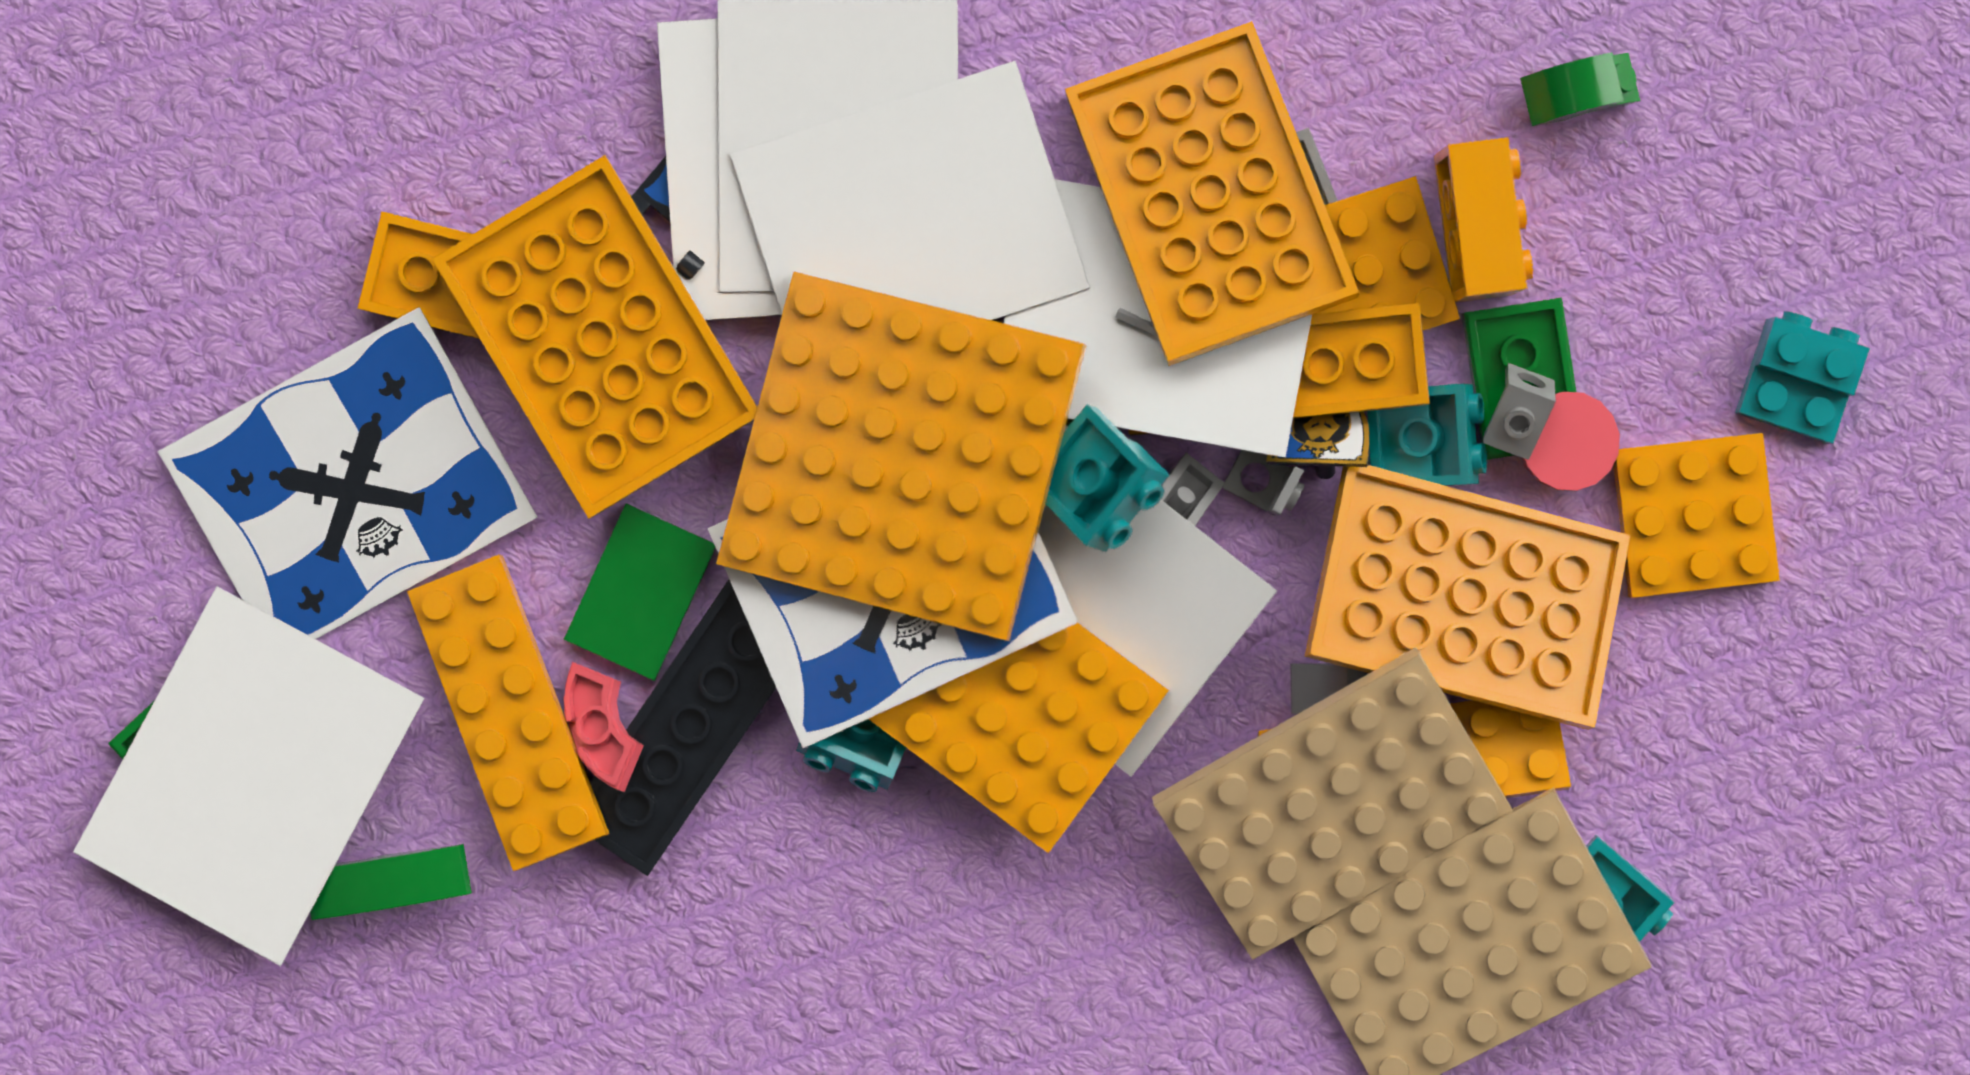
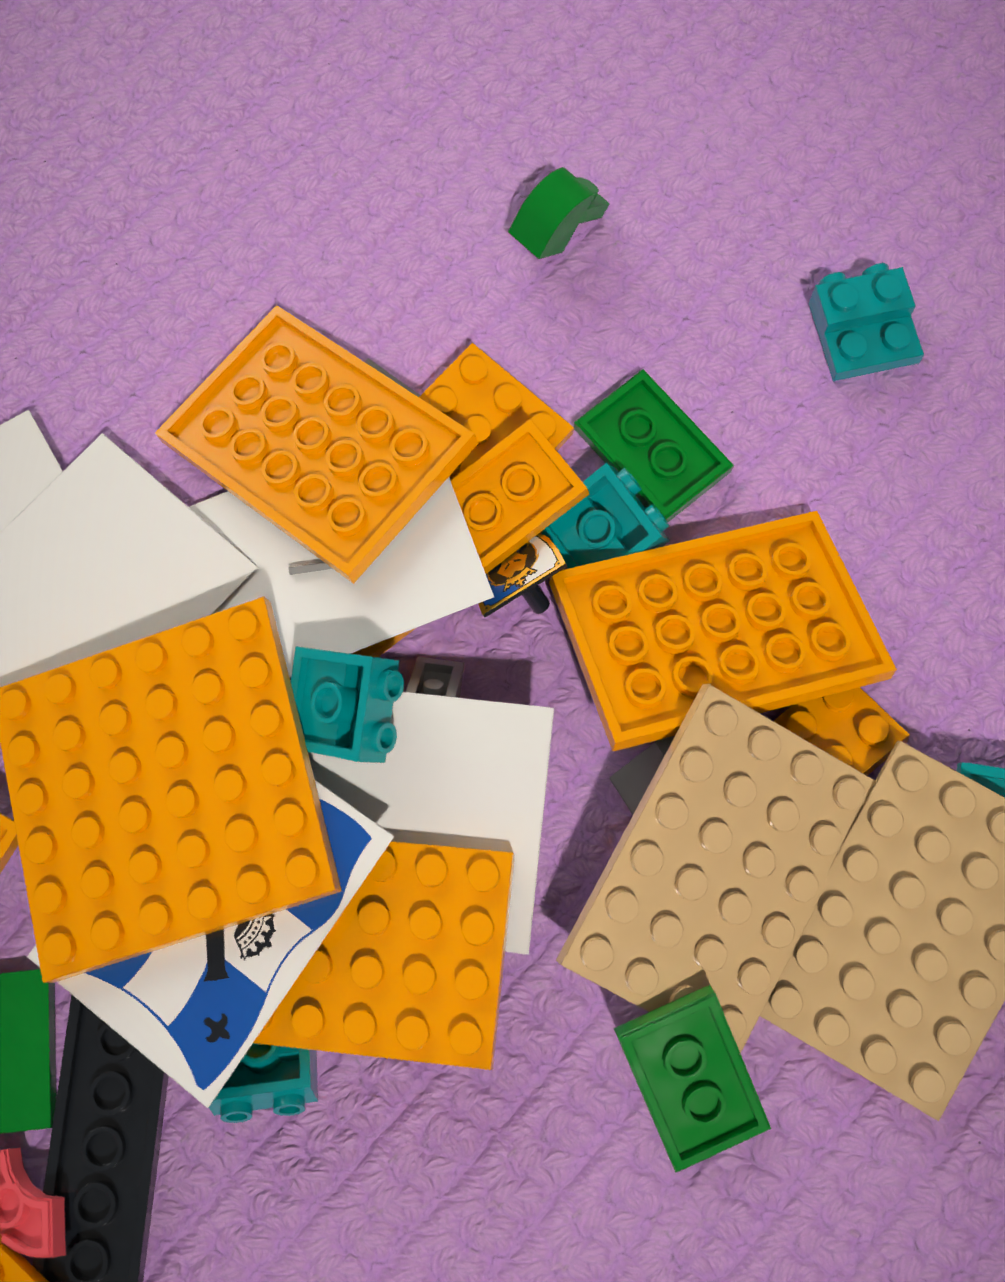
camera: 25 degrees left, 15 degrees down
(1206, 953) = (692, 1078): none -> green tile
(1281, 490) = (512, 635): light grey bracket -> none
(1482, 219) = (542, 337): light orange brick -> none
(1520, 412) = (668, 464): light grey bracket -> none
(1575, 444) = (720, 465): coral tile -> none
(1696, 515) = (857, 469): light orange plate -> none

